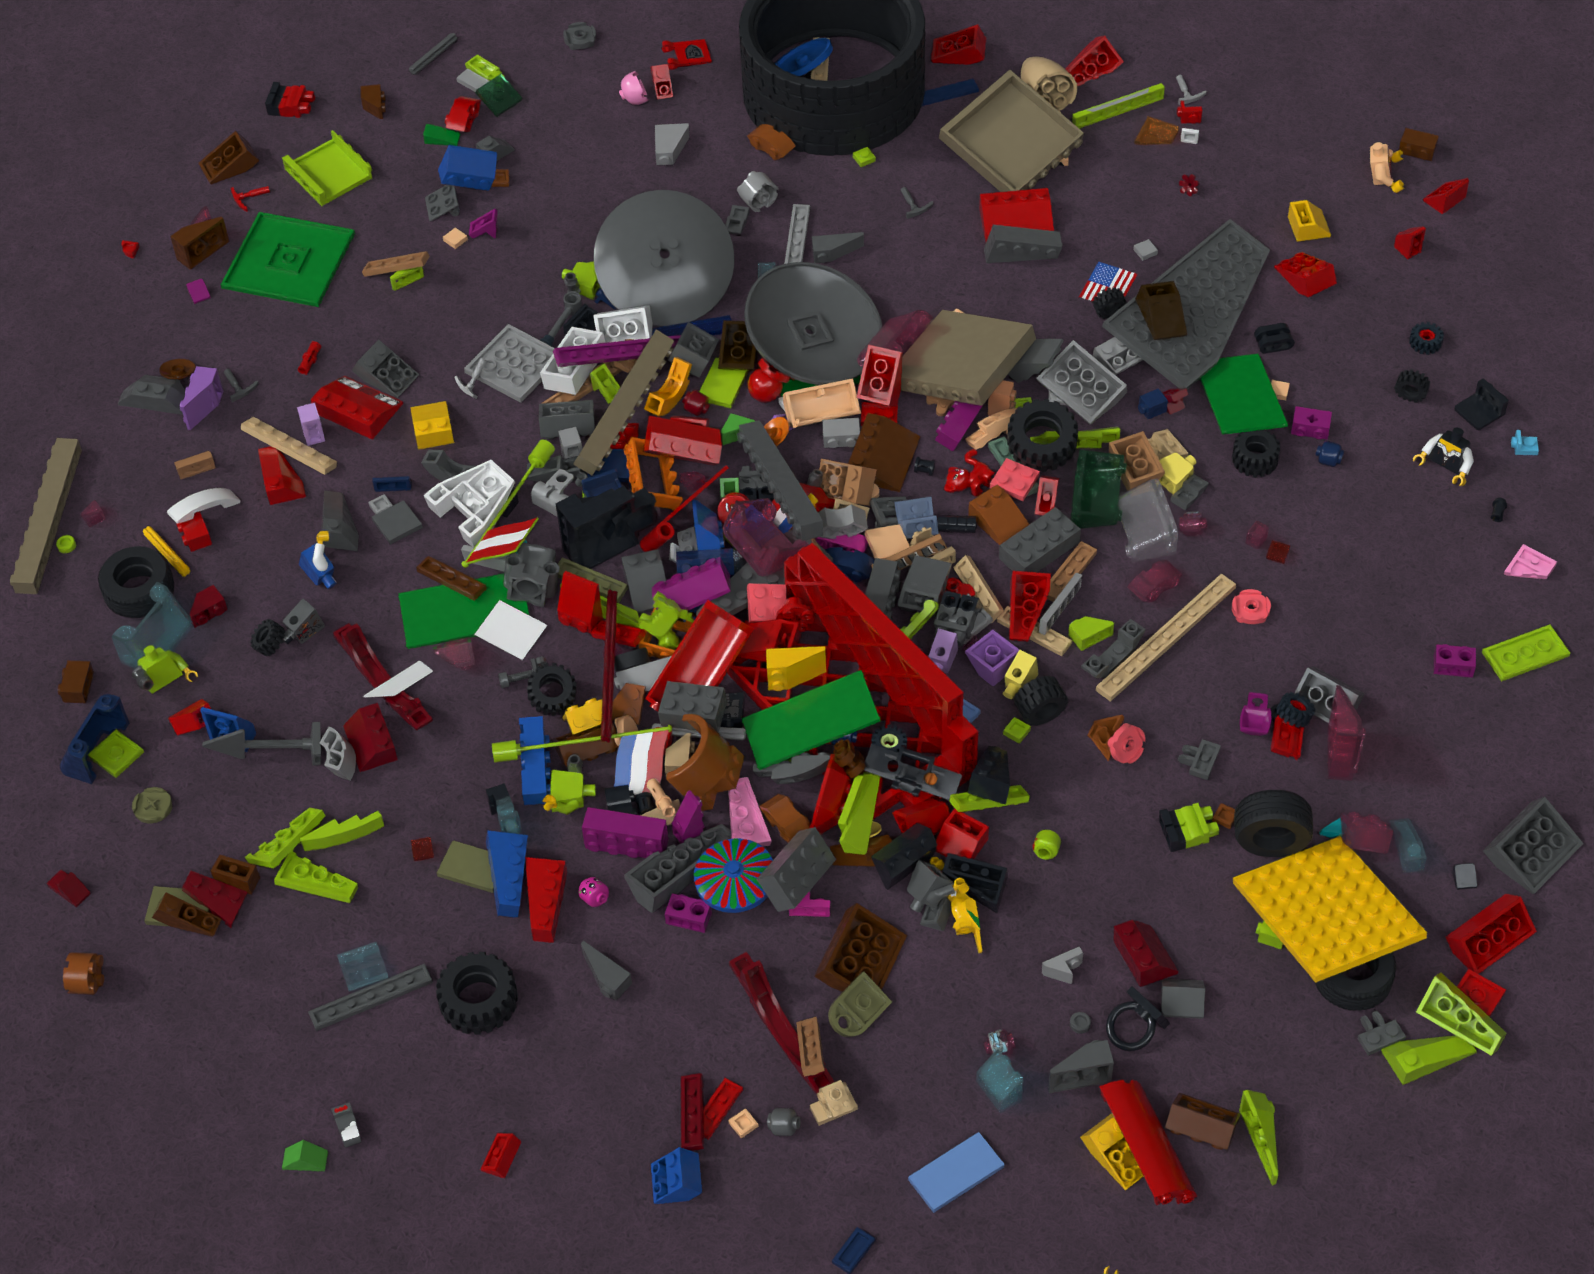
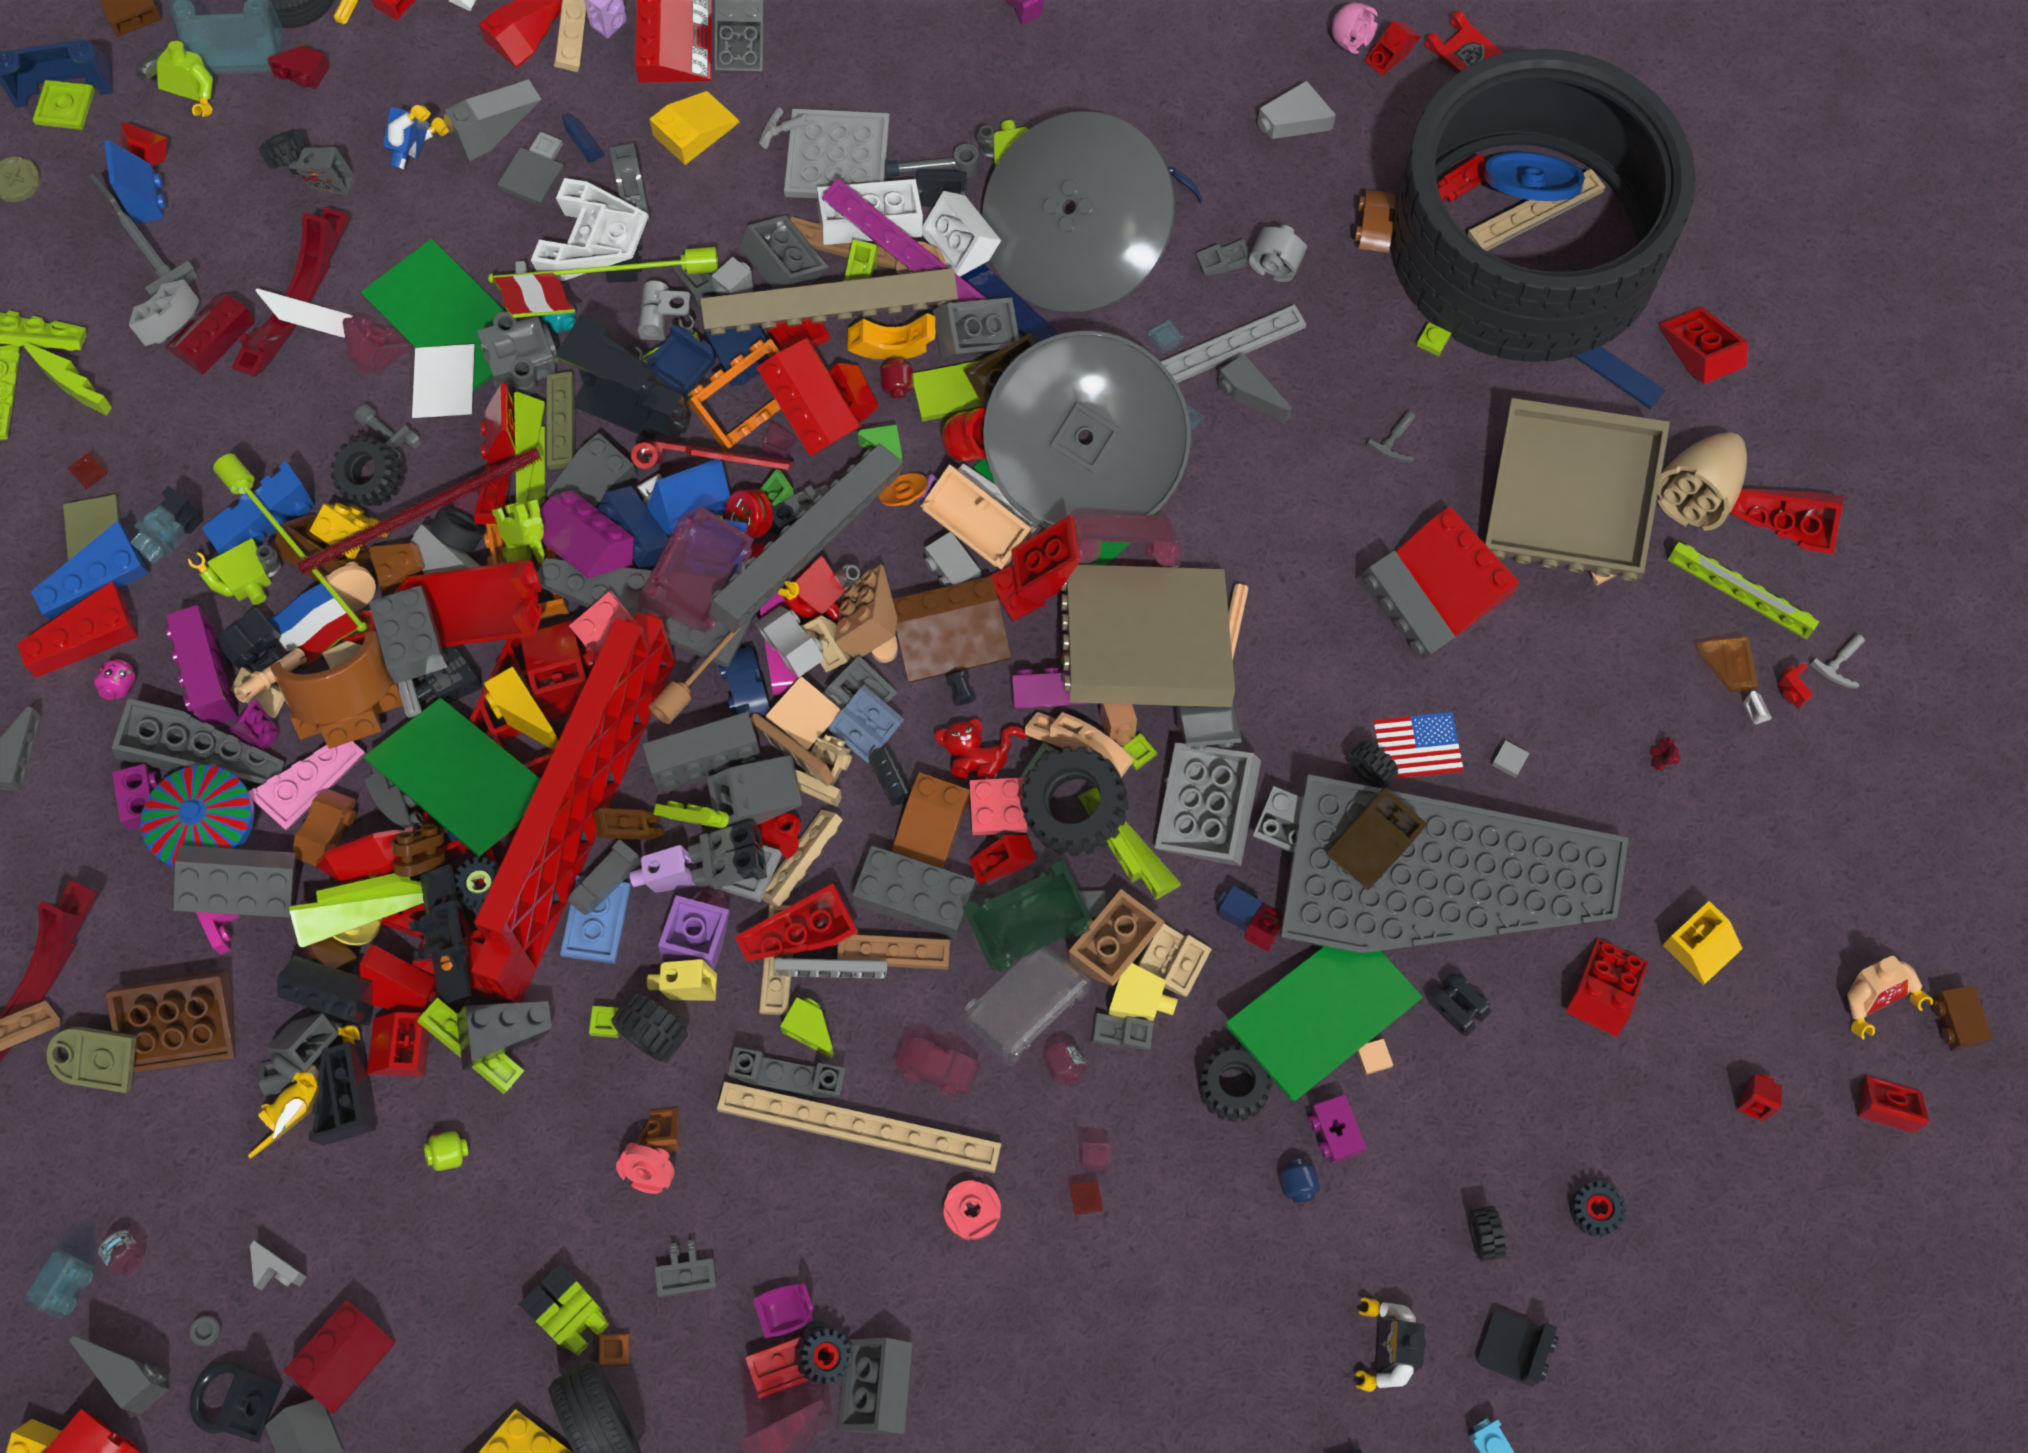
camera: 55 degrees right, 15 degrees up
(451, 578) = (477, 287): reddish brown tile -> none

